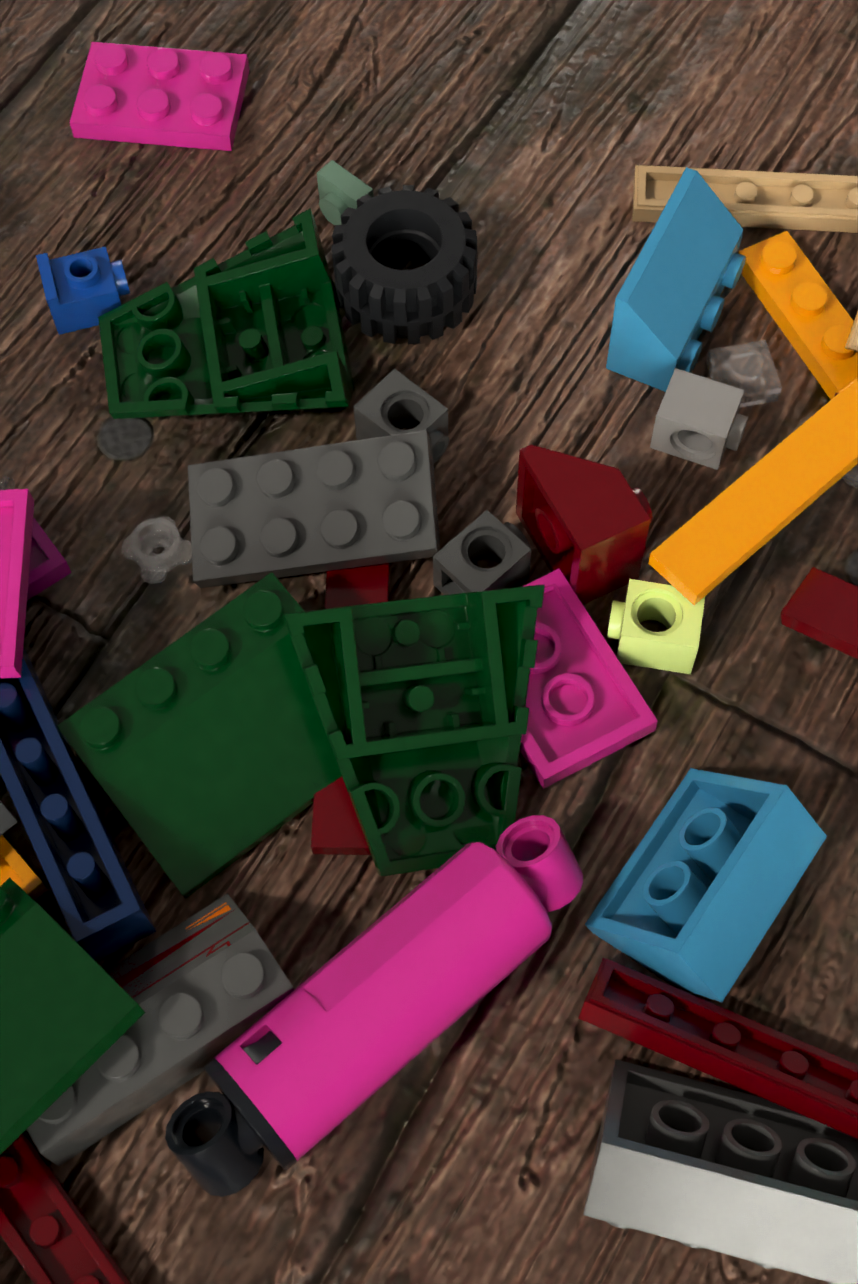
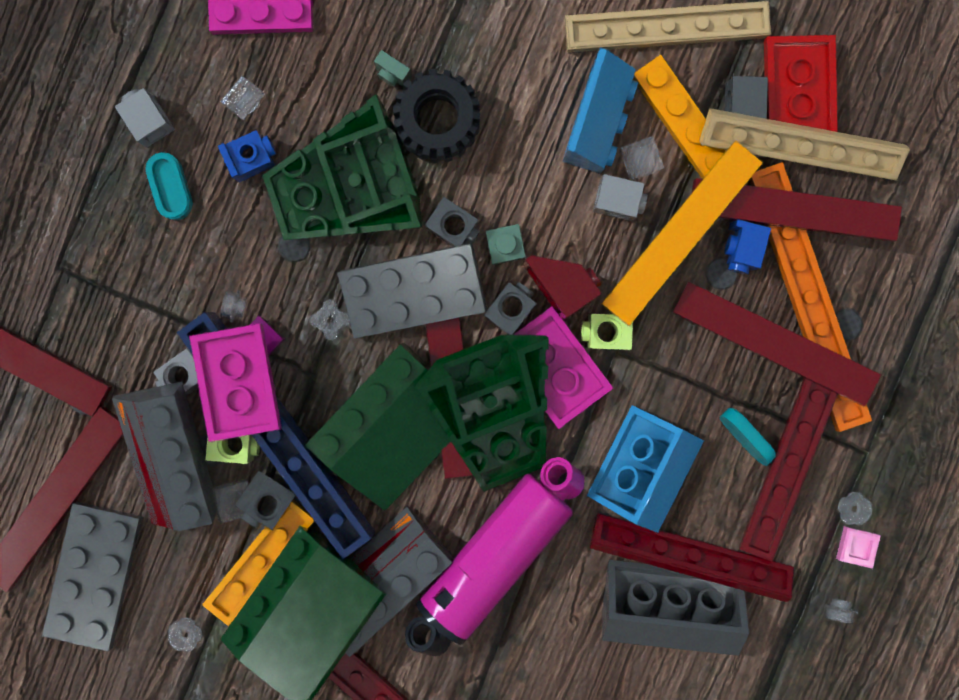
camera: 10 degrees left, 25 degrees up
(97, 212) = (242, 98): none -> clear plate
(488, 472) = (505, 244): none -> sand green plate

